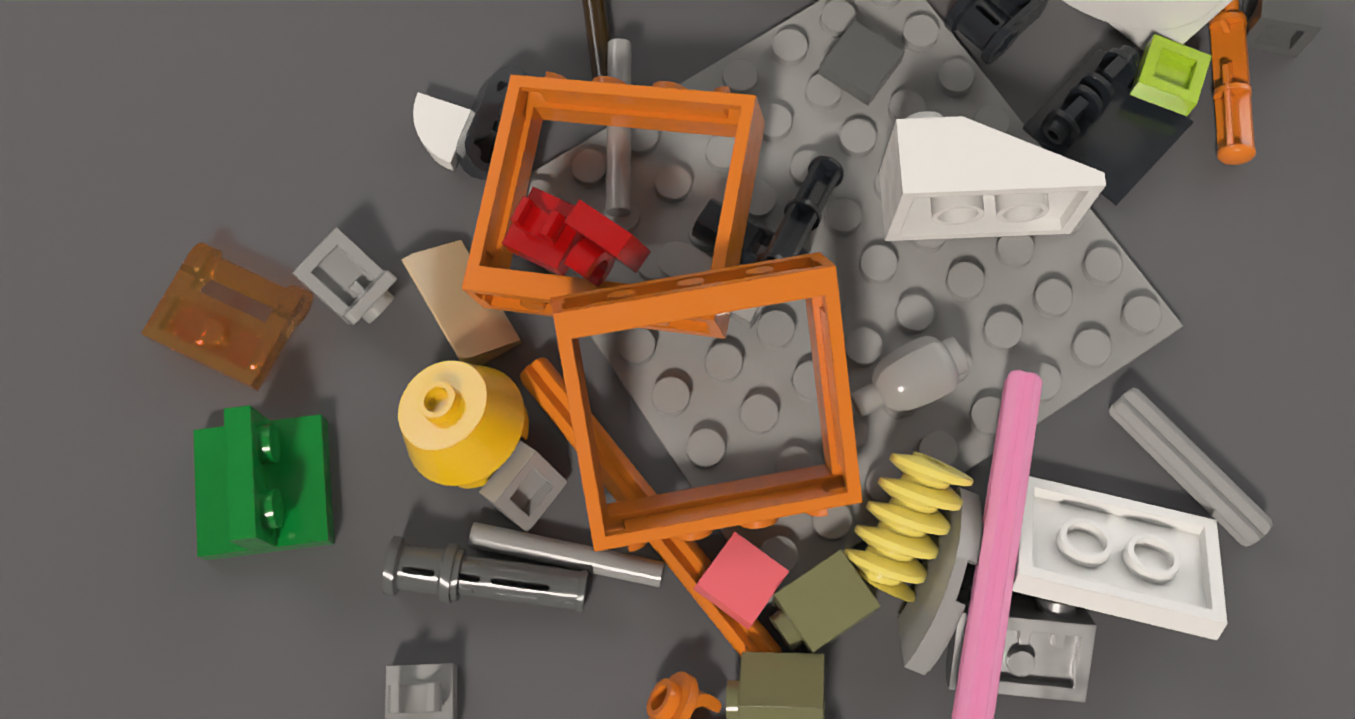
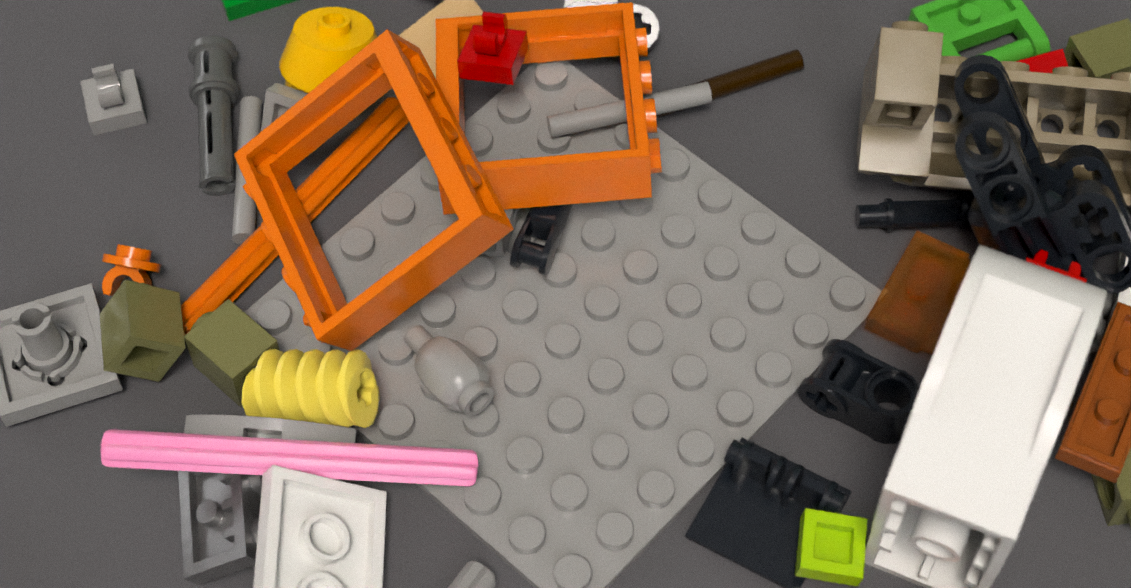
camera: 75 degrees right, 15 degrees down
(602, 244) = (484, 80): red tile -> none
(741, 580) = (242, 279): coral tile -> none
(804, 211) = (574, 247): black piece -> none
(861, 62) = (753, 278): dark grey tile -> none
(975, 182) = (631, 346): white slope -> none

